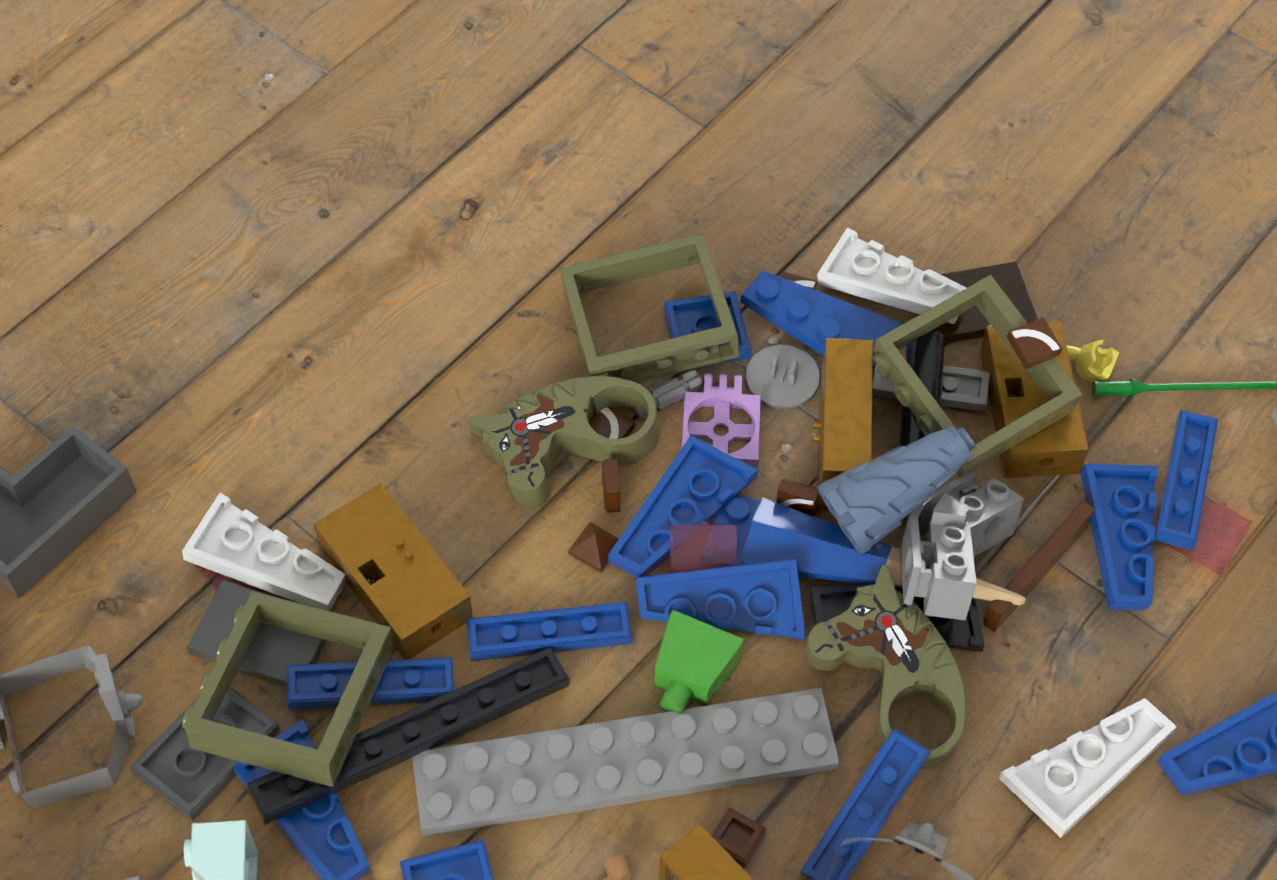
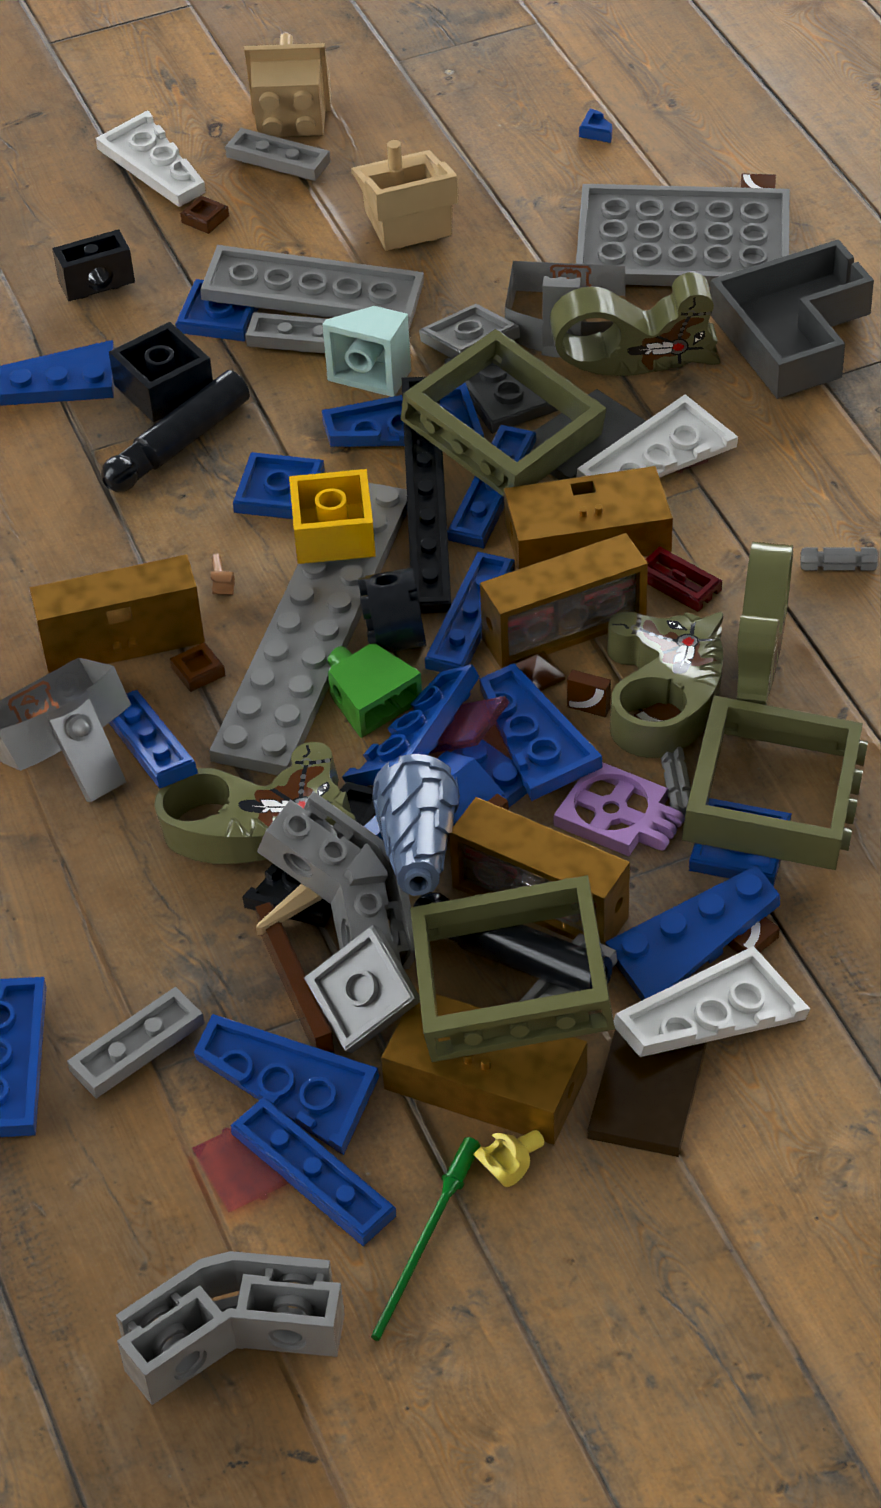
camera: 120 degrees right, 10 degrees down
(116, 616) = (639, 340): none -> olive animal
(140, 806) = (464, 329): none -> light grey tile
(346, 368) = (839, 559): none -> light grey axle
(417, 509) = (674, 582): none -> dark red tile
(489, 368) = (763, 619): none -> olive animal
(519, 769) = (332, 516): none -> yellow brick
(525, 532) = (562, 600): none -> pearl gold brick
(591, 659) = (392, 610): none -> black brick
(782, 376) = (656, 883): light grey piece -> none
(1034, 343) = (500, 1001): reddish brown tile -> none
(1039, 487) = (362, 989): none -> light grey tile
(1085, 768) = (78, 926): white wing -> none
(1167, 655) = (135, 1042): none -> light grey plate

